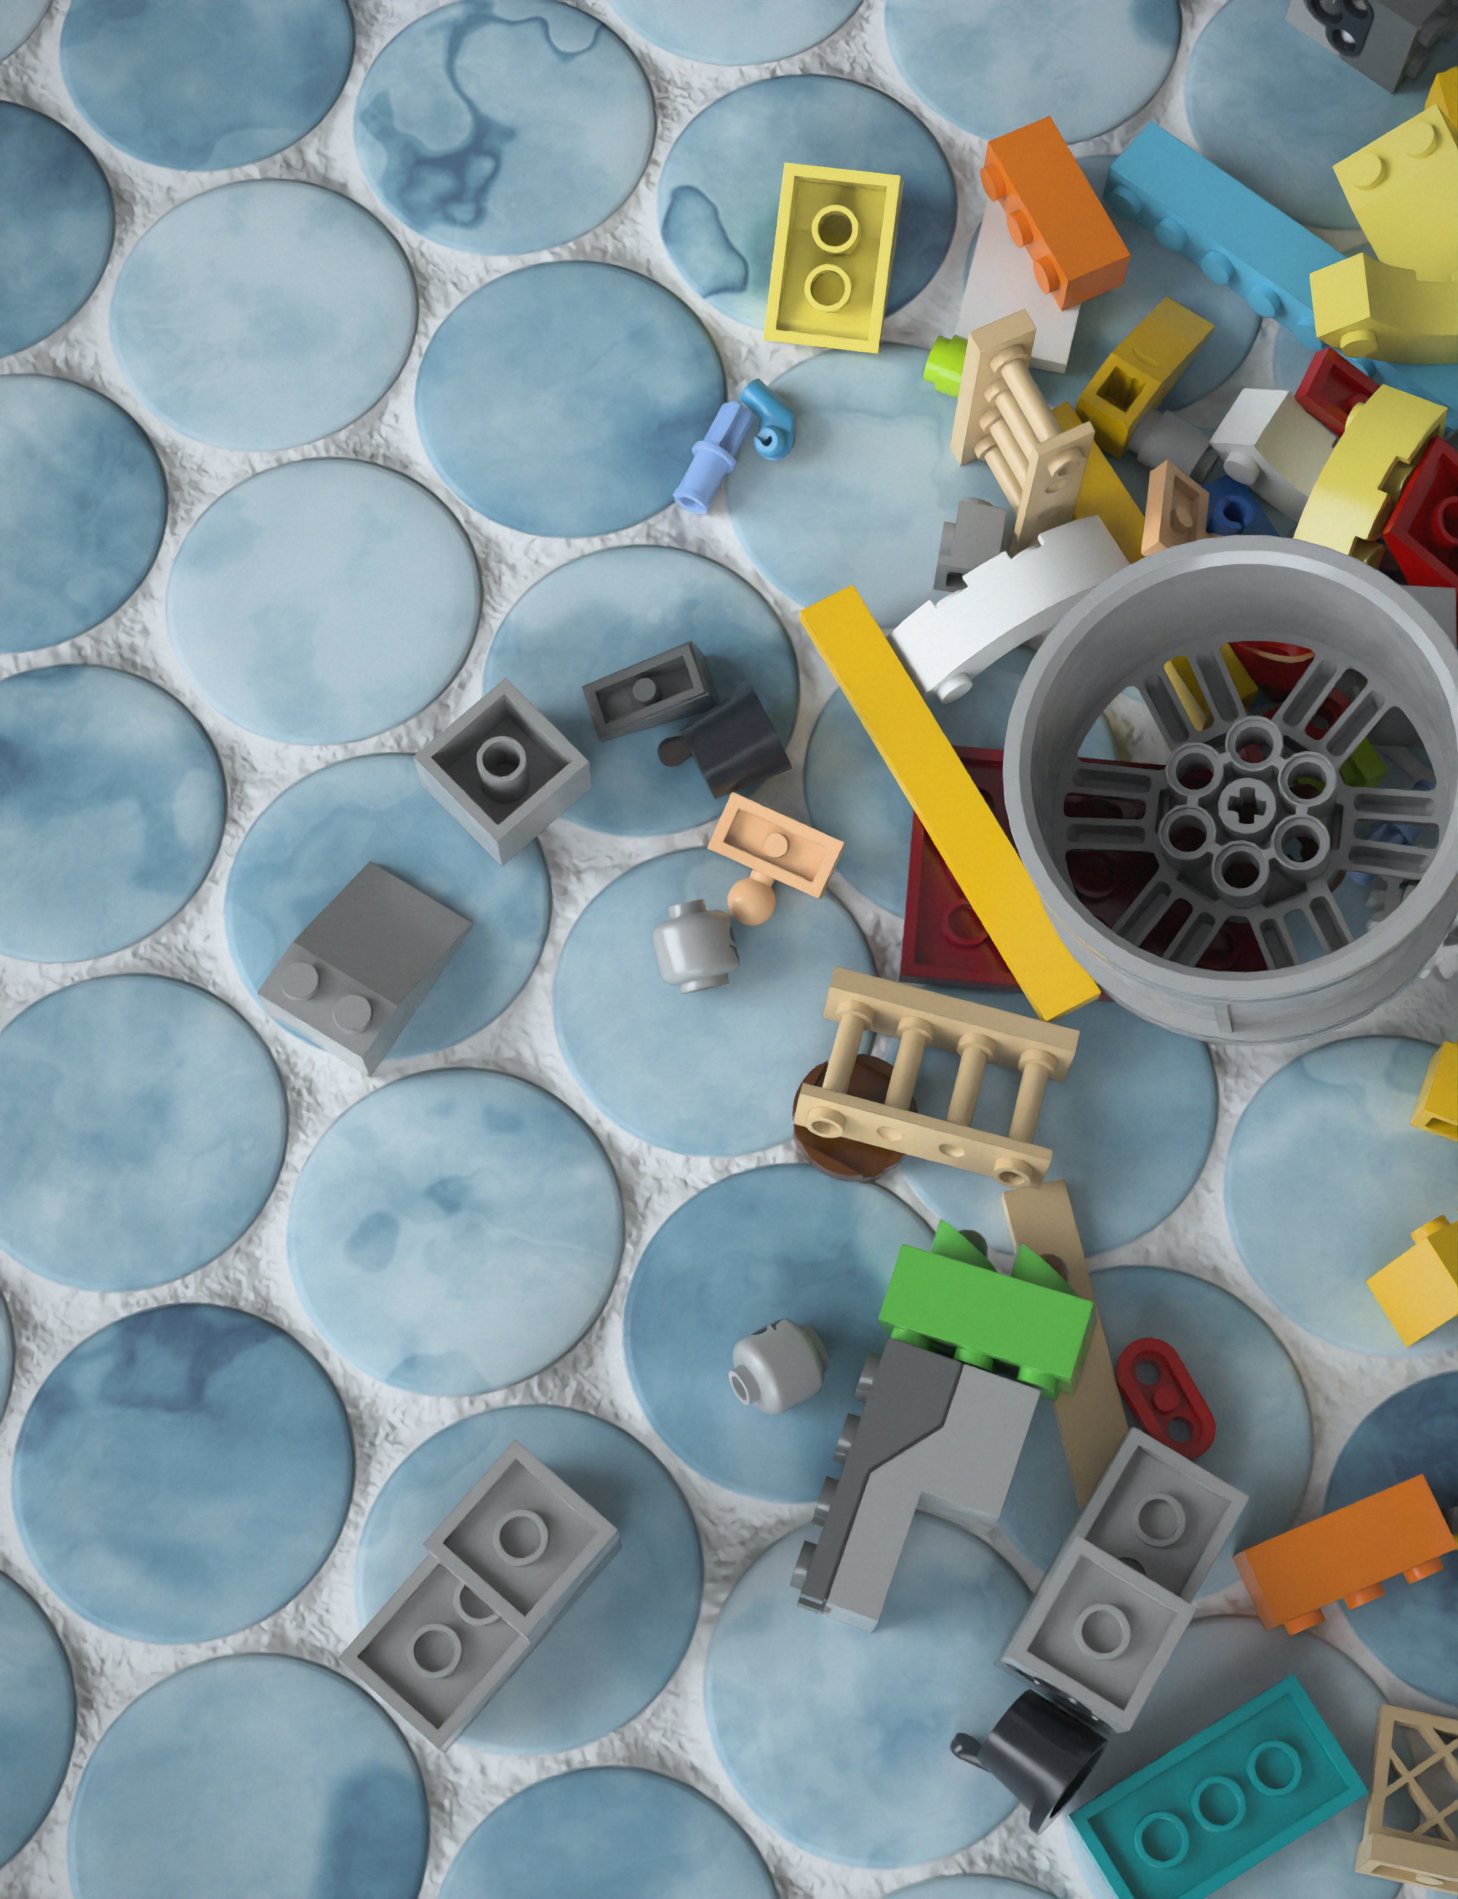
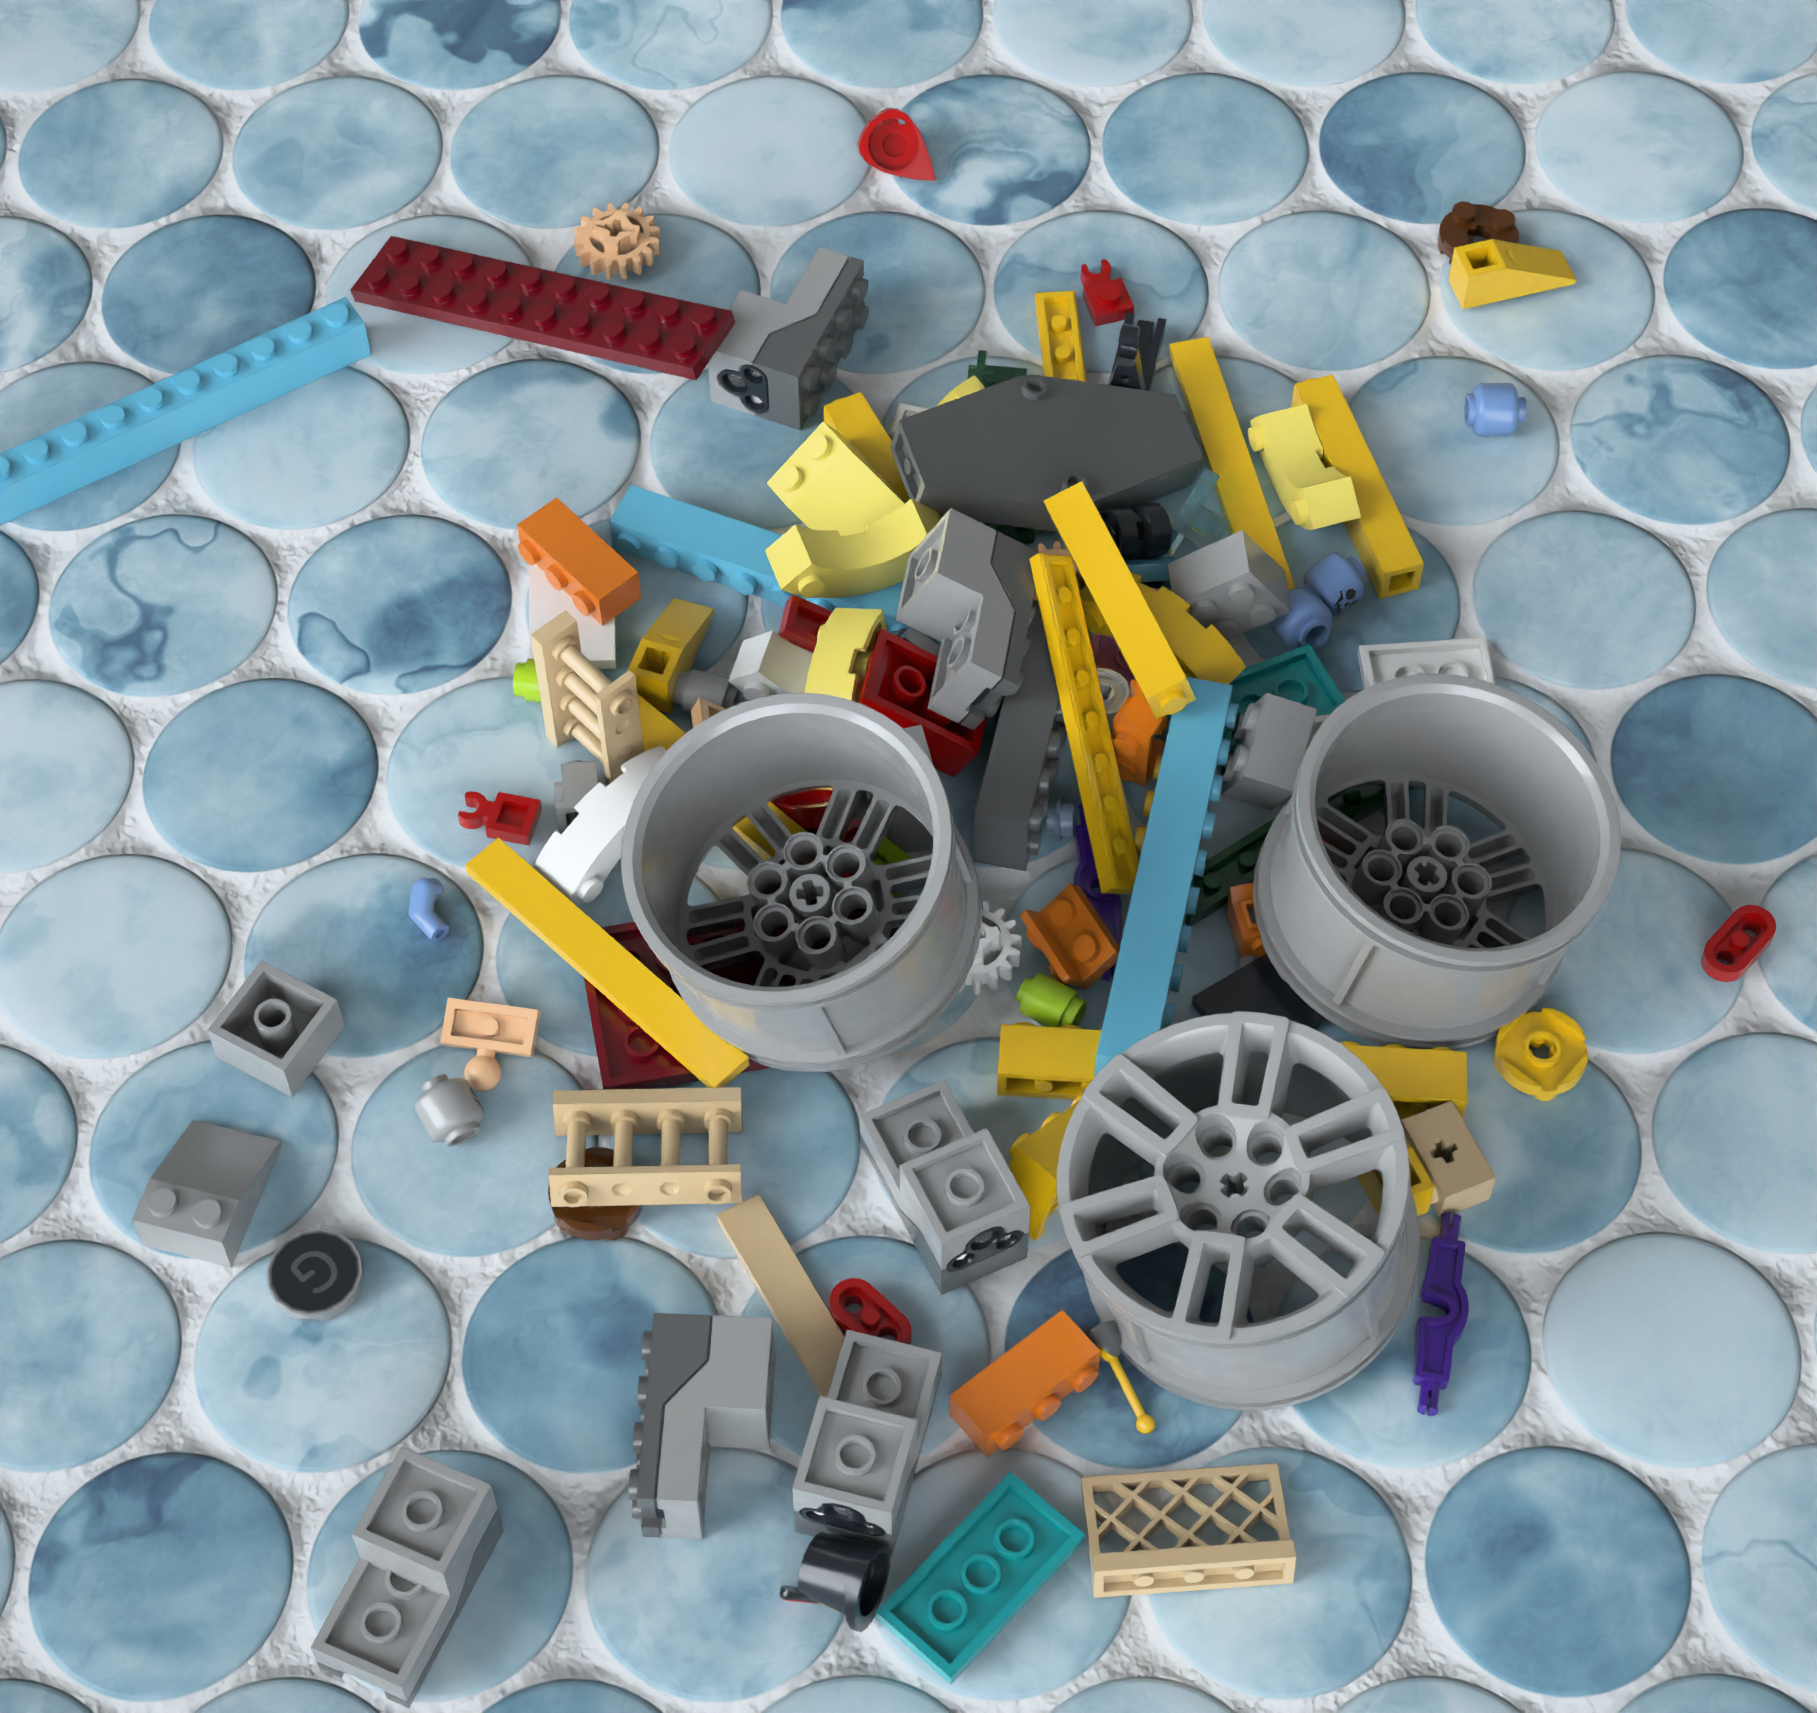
camera: 15 degrees left, 15 degrees down
(471, 1123) = (315, 1275): none -> black tile
(651, 693) = (372, 952): dark grey slope -> none
(714, 457) = (376, 785): light blue axle -> none
(729, 744) = (438, 967): black hat -> none
(731, 644) = (421, 908): none -> medium blue arm
(776, 421) = (414, 748): dark azure arm -> none
(778, 1366) = (584, 1372): light grey head -> none
(833, 257) = (427, 630): light yellow slope -> none
(870, 553) = (508, 817): none -> red plate
(992, 1321) = (733, 1280): bright green piece -> none
(1314, 1258) = (947, 1186): none -> light grey piece

